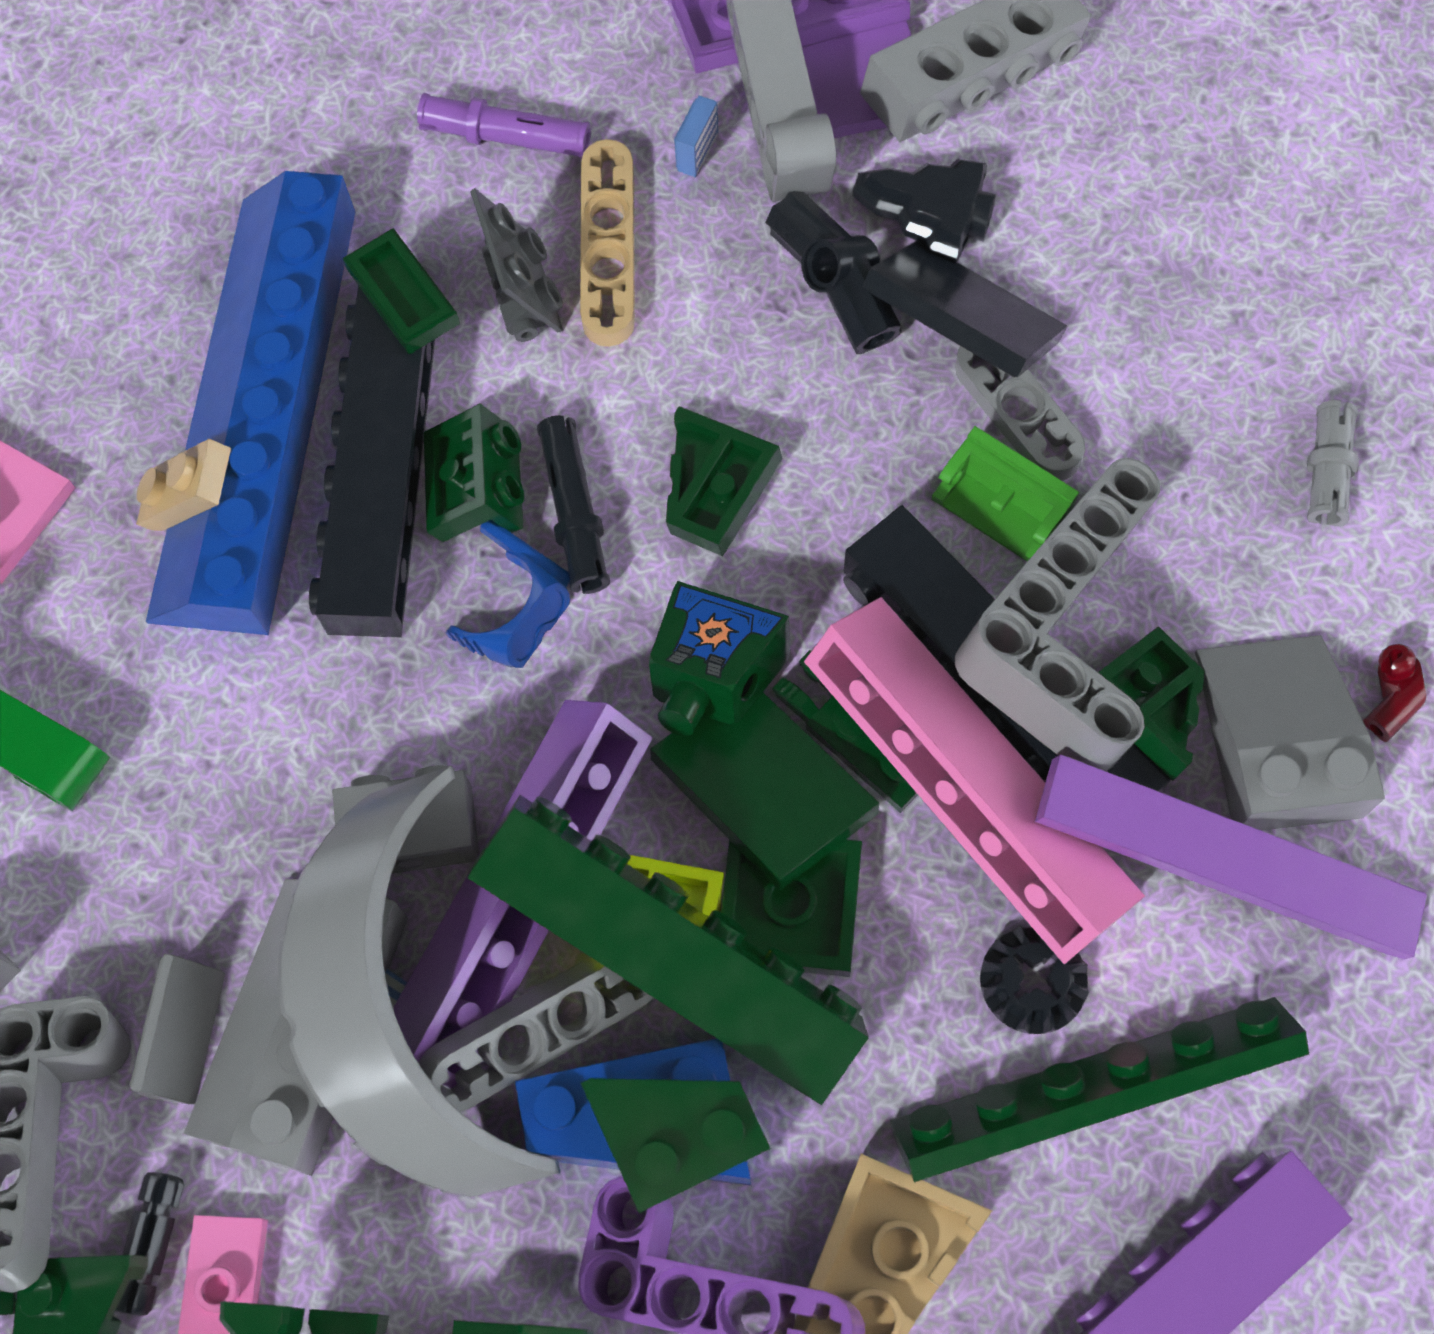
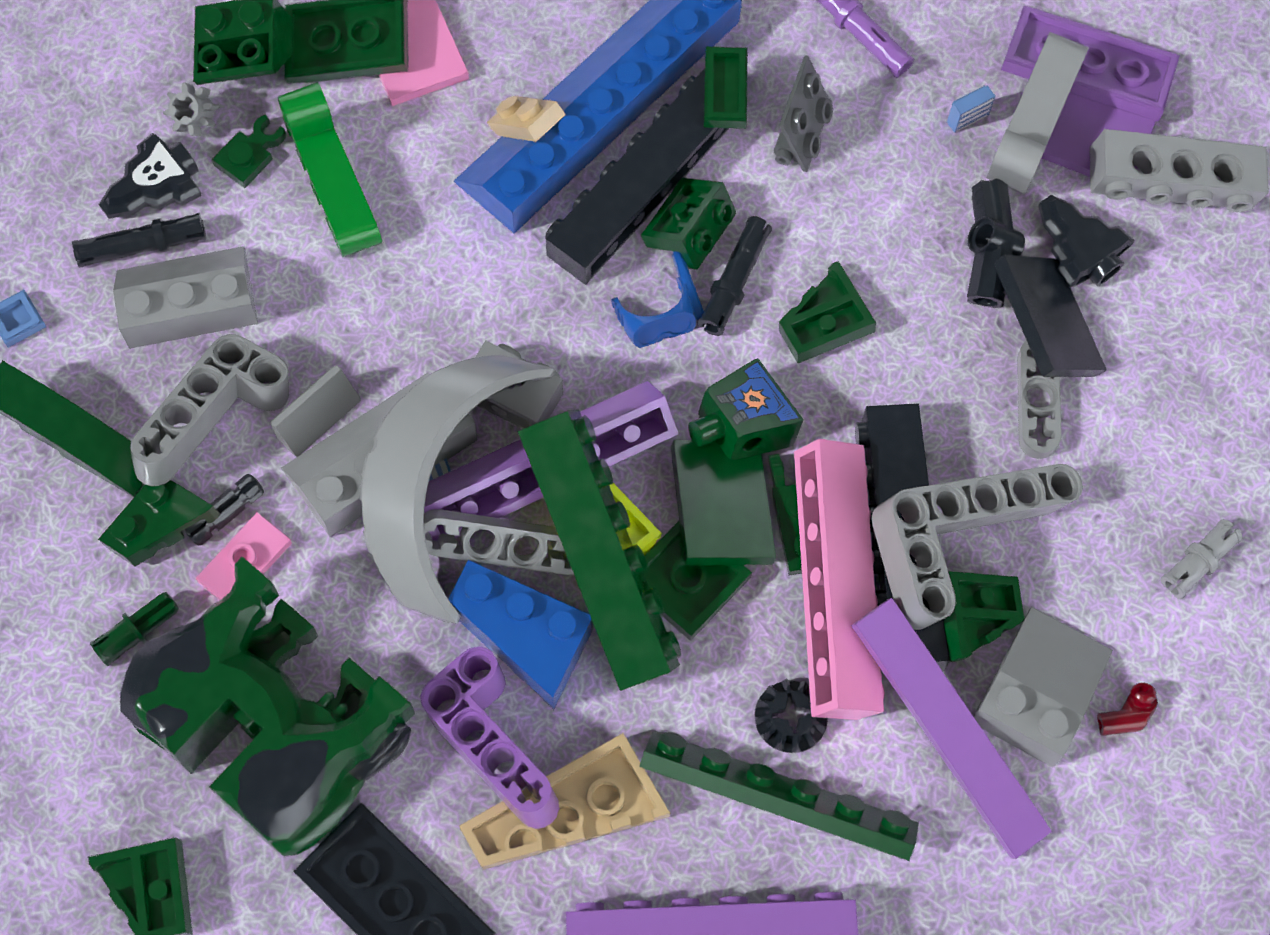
camera: 30 degrees right, 0 degrees up
(604, 243) = (867, 135): tan beam -> none
(673, 1131) = (530, 642): dark green wing -> none
(1003, 494) = (985, 435): bright green hinge -> none

